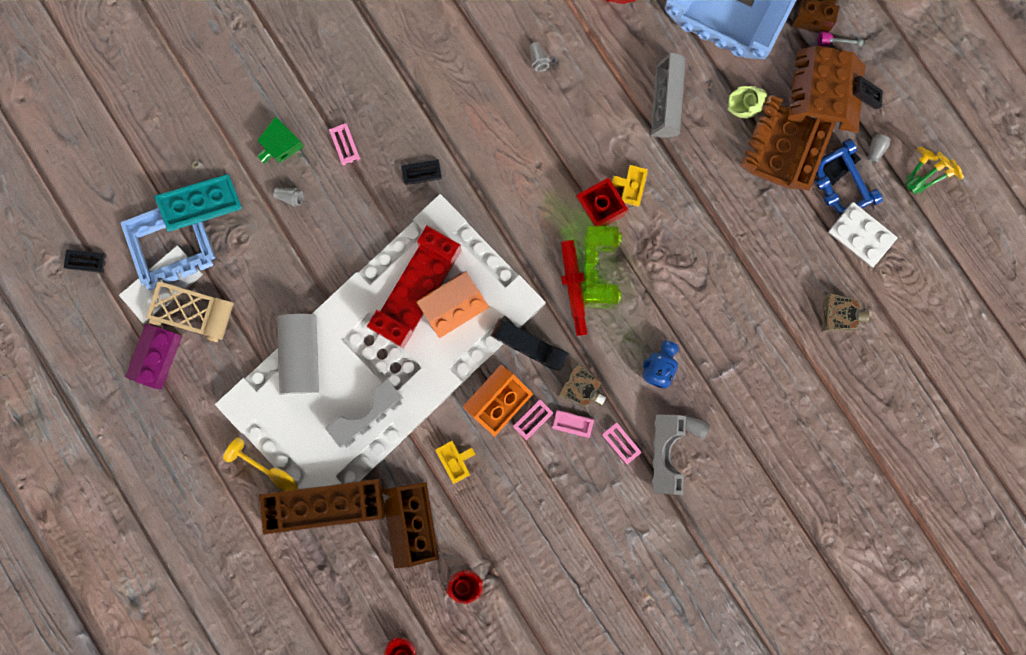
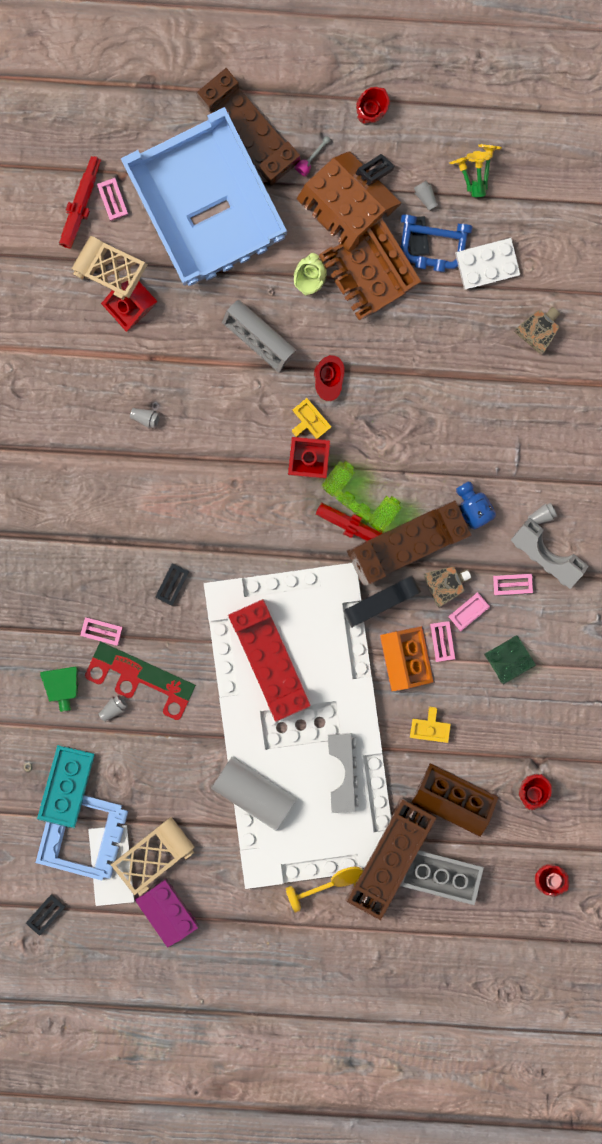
camera: 55 degrees left, 5 degrees up
(334, 196) = (138, 671): none -> piece
(337, 562) = (444, 877): none -> light grey brick
(452, 304) = (305, 639): orange slope -> none
(558, 486) = (510, 659): none -> clear green hinge
(593, 332) = (408, 542): none -> reddish brown plate
(677, 174) = (329, 377): none -> red piece
(916, 55) = (372, 105): none -> red hair

